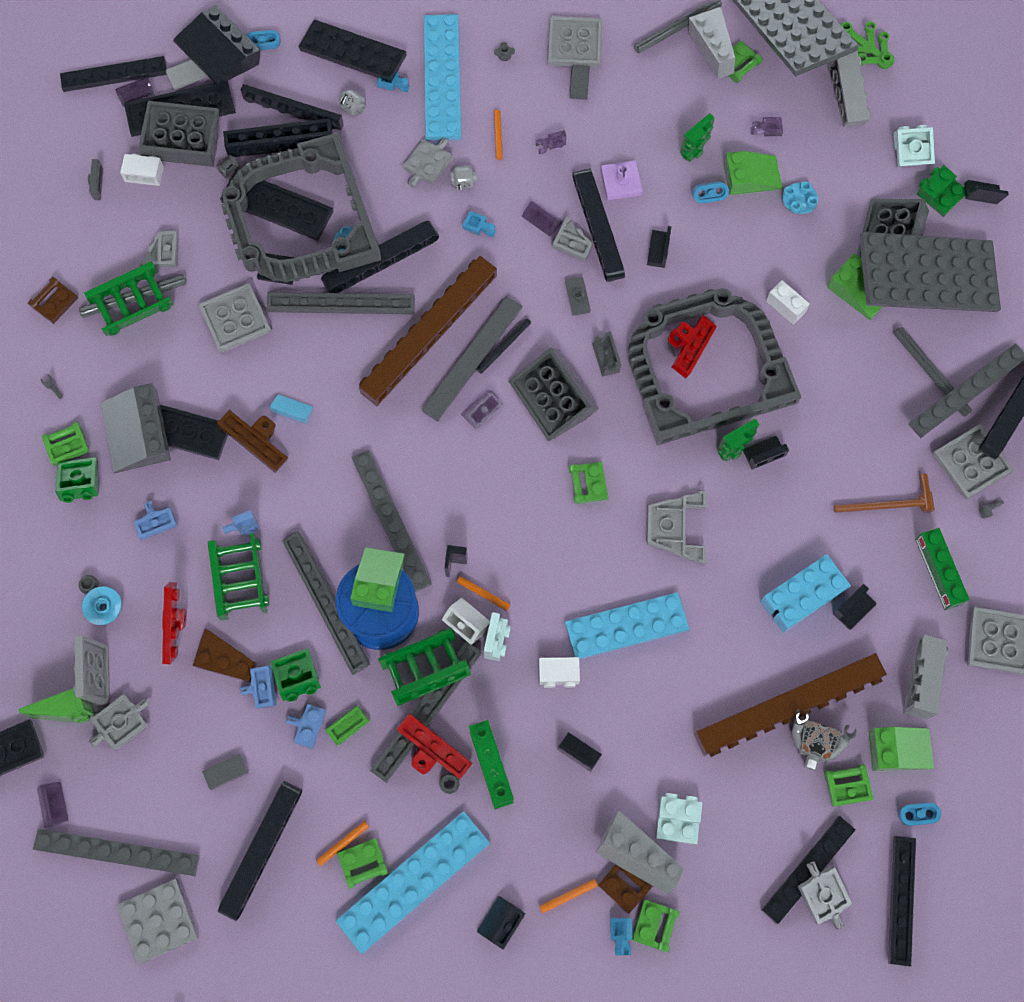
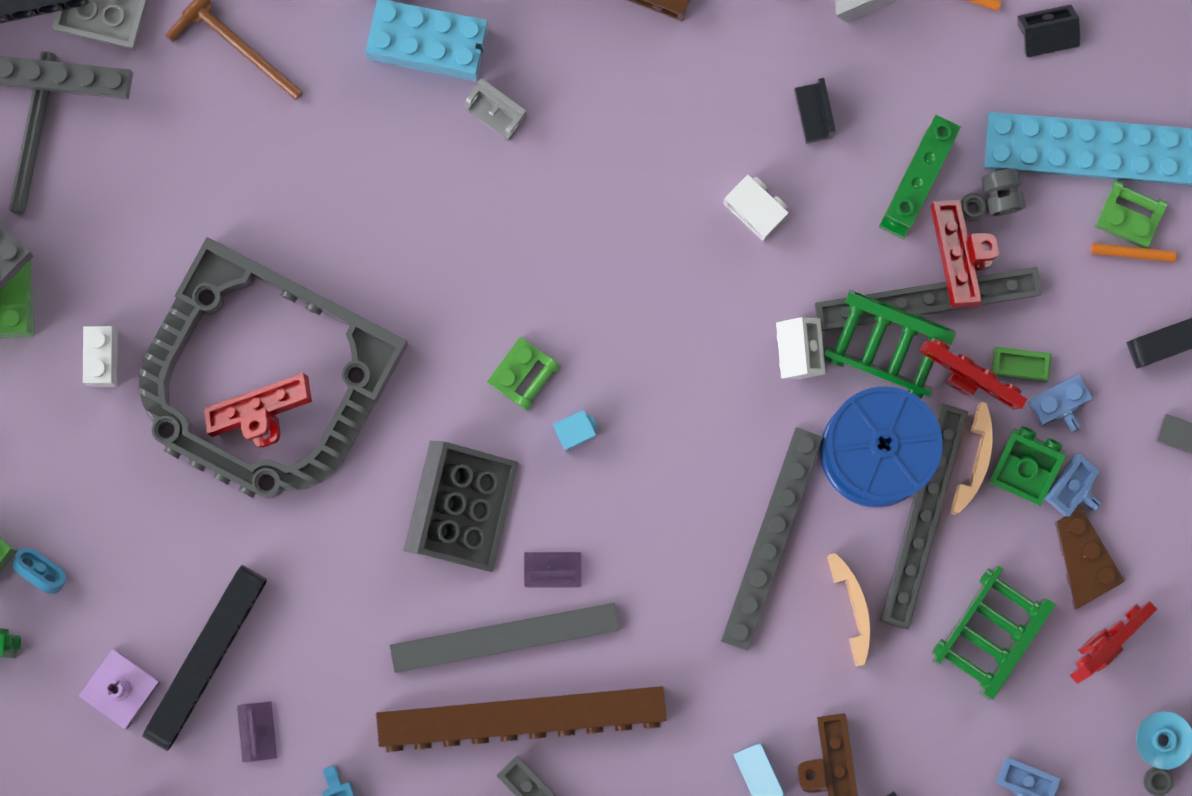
camera: 135 degrees left, 10 degrees up
(244, 523) = (936, 679): medium blue plate -> none
(314, 632) = (983, 426): none -> light nougat slope
(339, 534) = (840, 573): none -> light nougat slope
(366, 689) = (969, 376): none -> red plate
(377, 579) = (864, 458): bright green slope -> none
(447, 807) = (999, 183): none -> dark grey wheel
(455, 554) = (745, 427): black panel -> none
(483, 593) = (751, 364): orange bar -> none
(495, 638) = (795, 295): light aqua plate -> none
(503, 346) = (456, 618): black bar -> none
(536, 478) = (576, 430): none -> medium azure brick
(572, 241) = (253, 667): light grey wing -> none
(577, 296) = (316, 596): dark grey plate -> none
(606, 355) = (357, 494): dark grey hinge -> none
(627, 626) = (639, 187): medium azure plate -> none
(659, 248) = (166, 562): black panel -> none
(668, 526) = (488, 246): light grey wing -> none
(735, 442) = (331, 257): green plate -> none
(736, 594) = (495, 109): none -> light grey hinge
(765, 452) = (304, 223): black panel -> none

